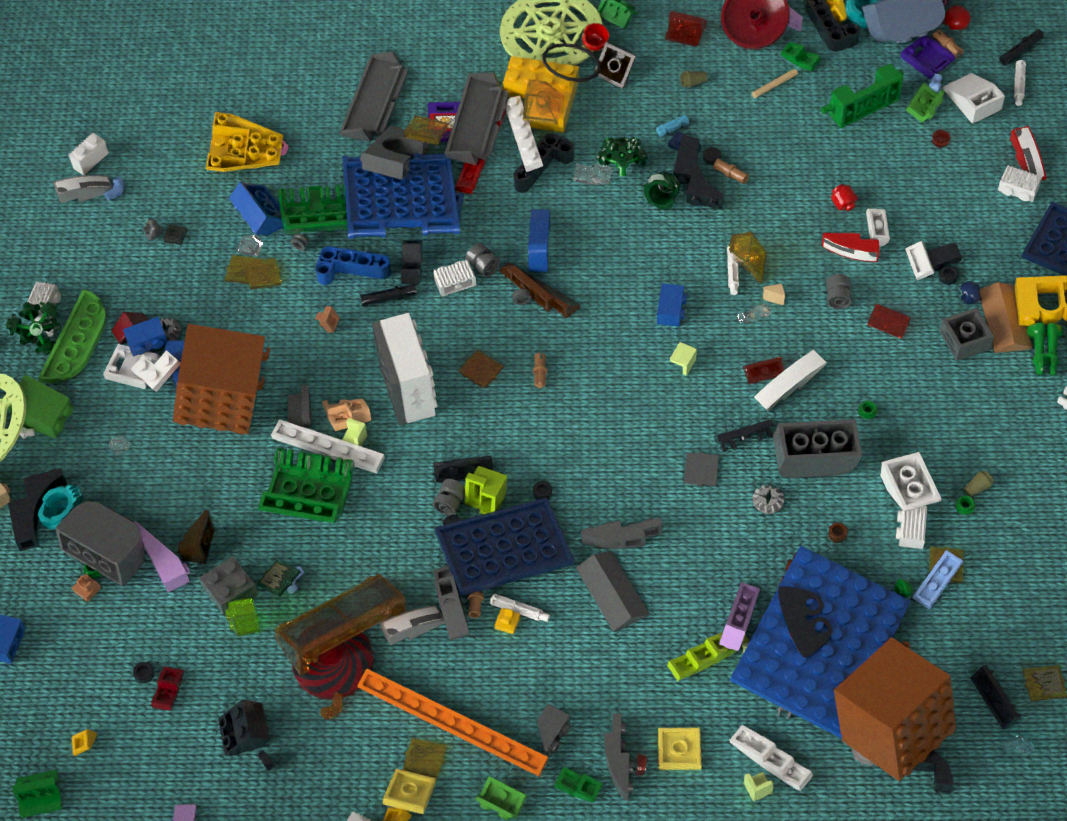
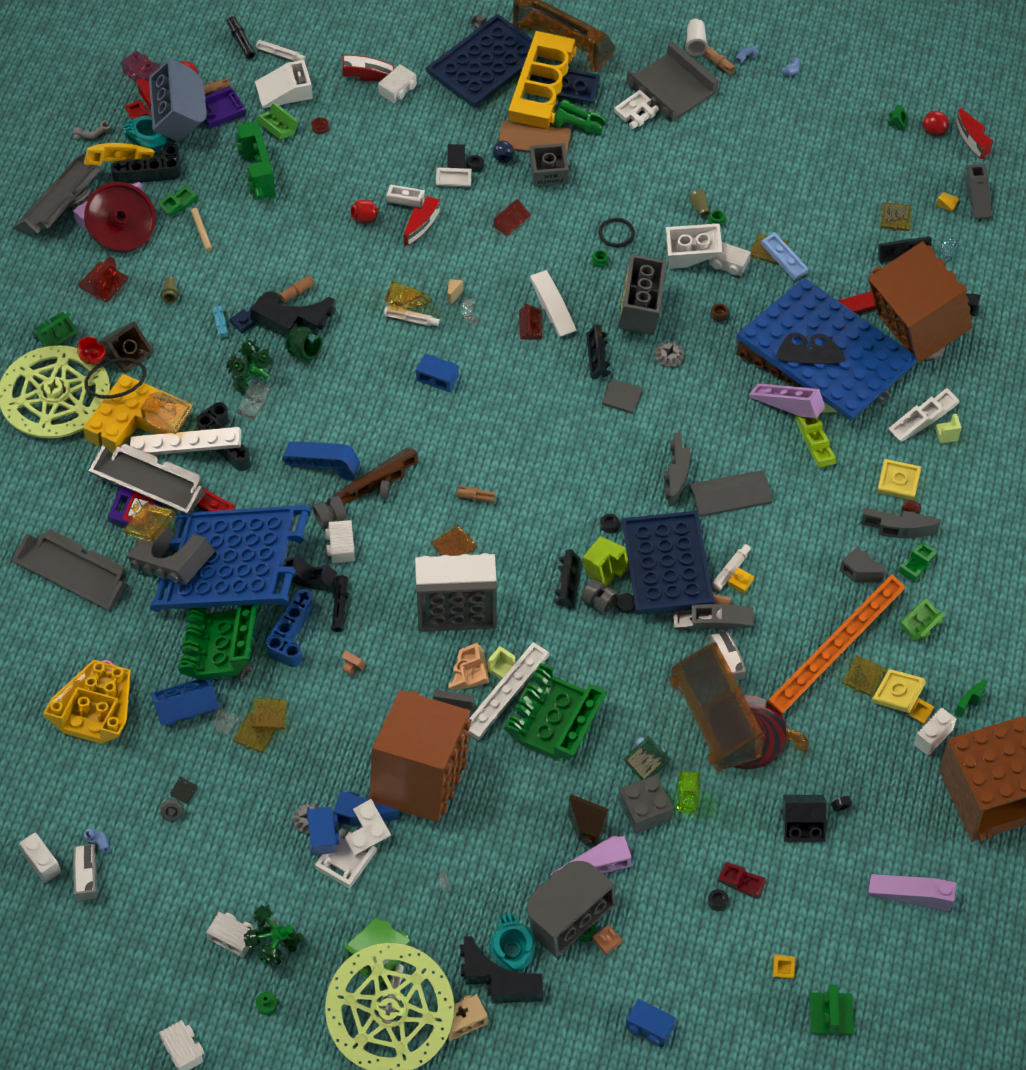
camera: 80 degrees left, 0 degrees up
(76, 340) = (293, 906): bright green plate -> none
(126, 320) = (295, 852): dark red slope -> none
(684, 356) = (501, 374): yellowish green panel -> none
(838, 291) = (469, 242): dark grey wheel -> none
(903, 588) = (787, 281): green plate -> none
(906, 432) = (615, 244): none -> black piece
(935, 83) = (256, 111): light blue arm -> none

